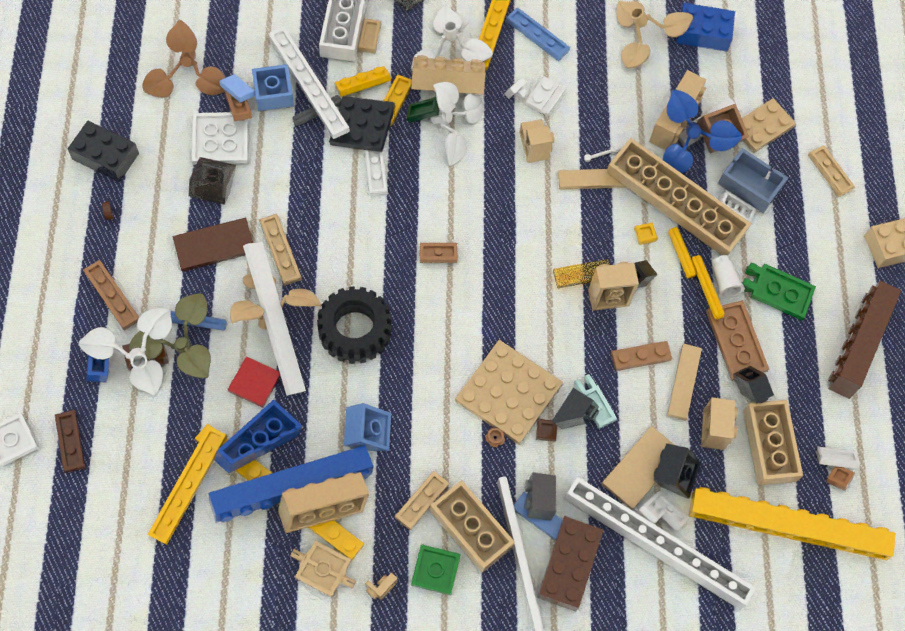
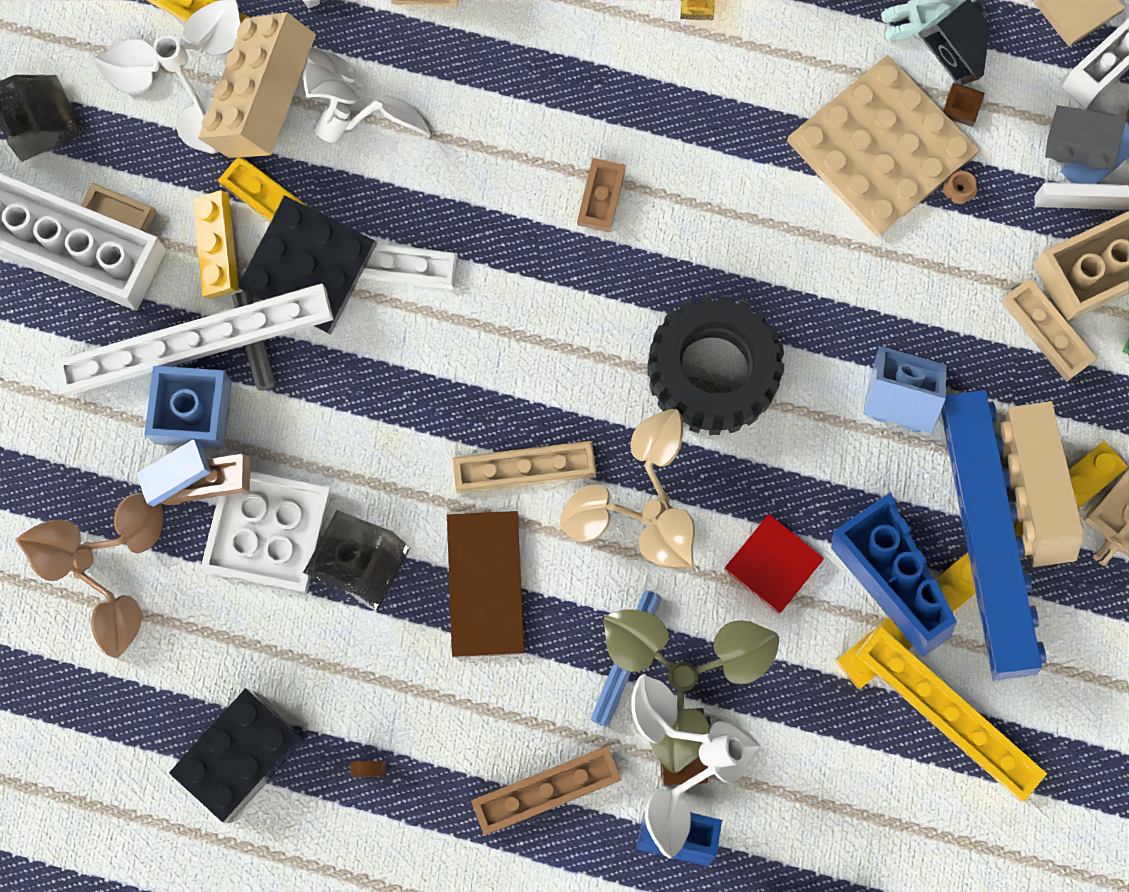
camera: 70 degrees left, 10 degrees up
(274, 318) = (692, 496): white tile -> none
(422, 110) = (312, 148): dark green tile -> none

